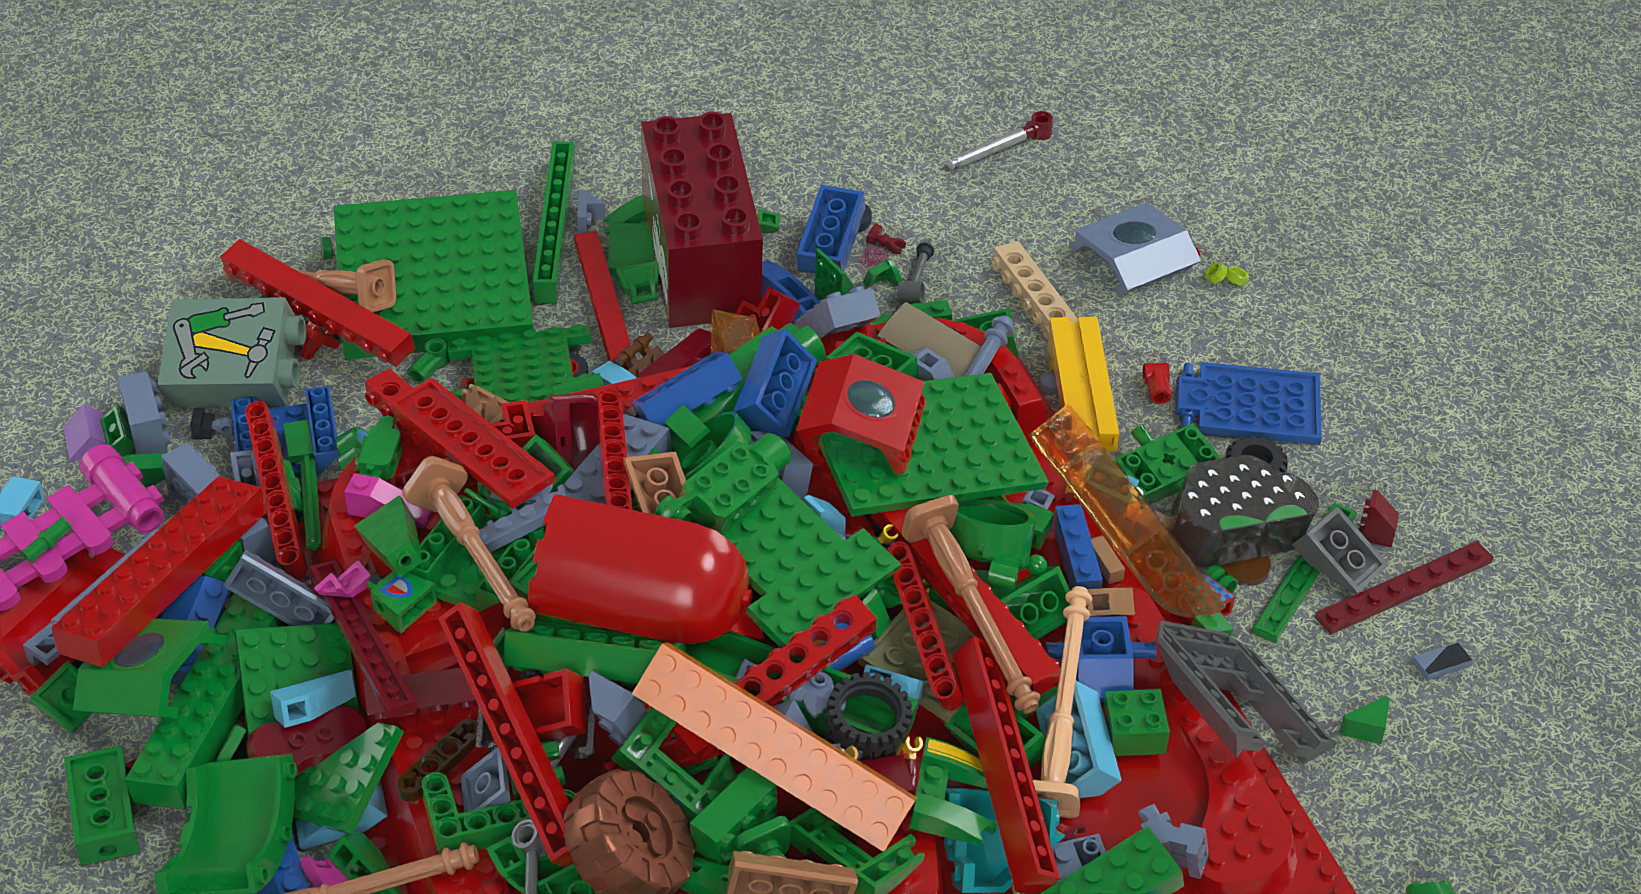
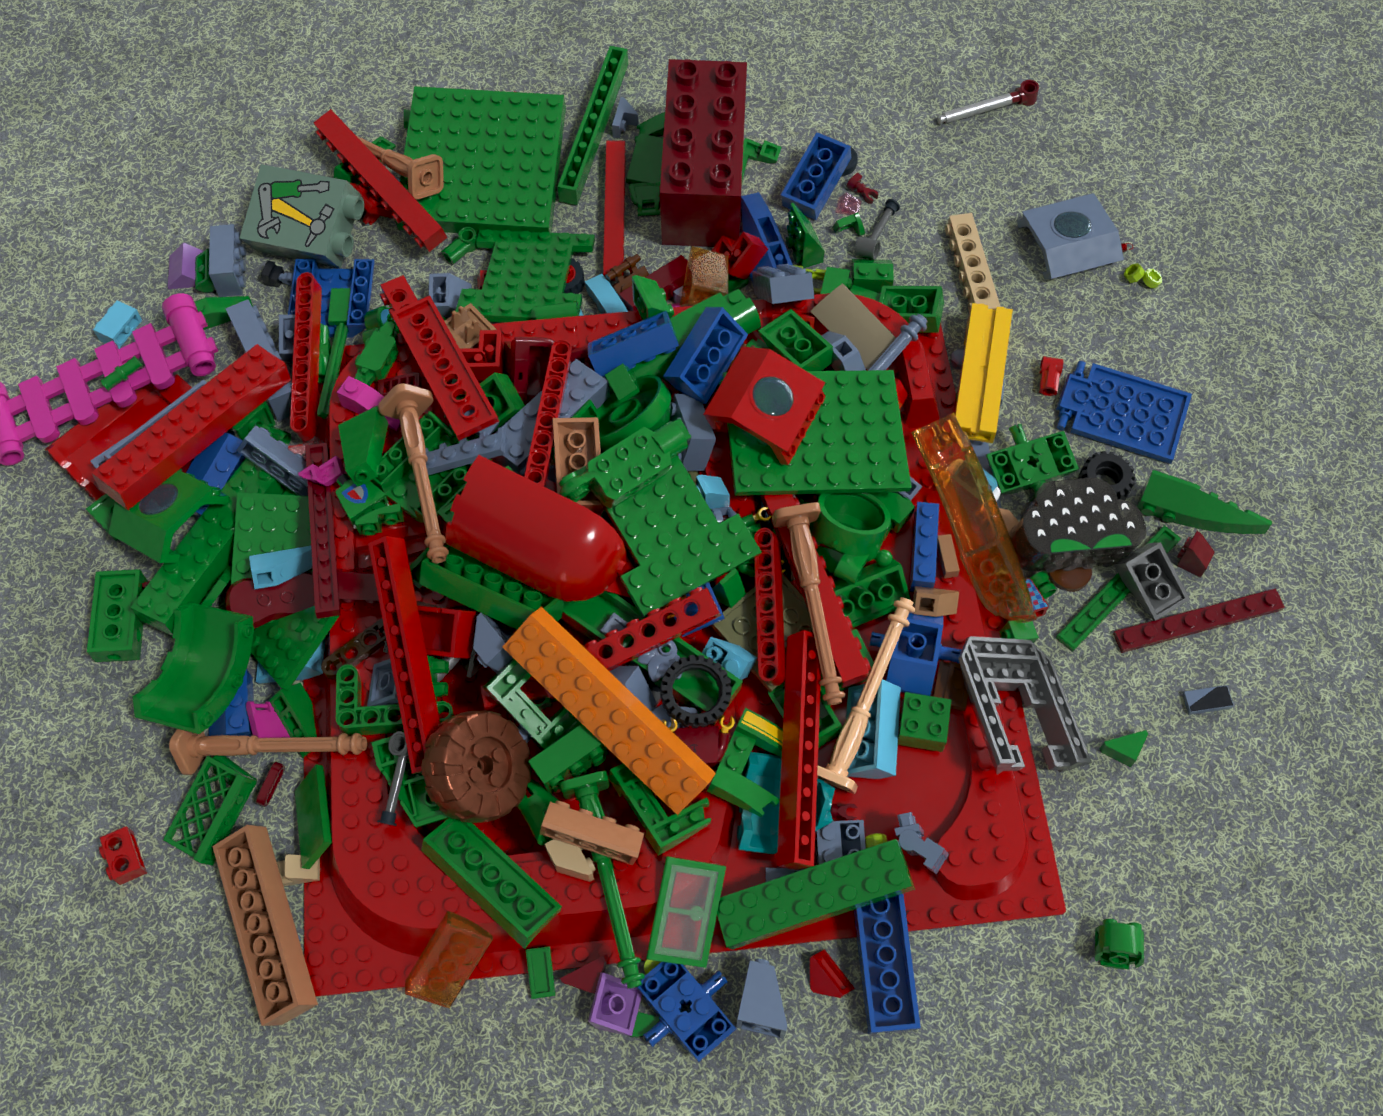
camera: 15 degrees right, 20 degrees up
(423, 617) = (372, 521): none -> green slope
(685, 346) = (649, 298): none -> green slope
(1155, 675) = (951, 685): none -> reddish brown plate
(1351, 475) = (1185, 504): none -> green wedge

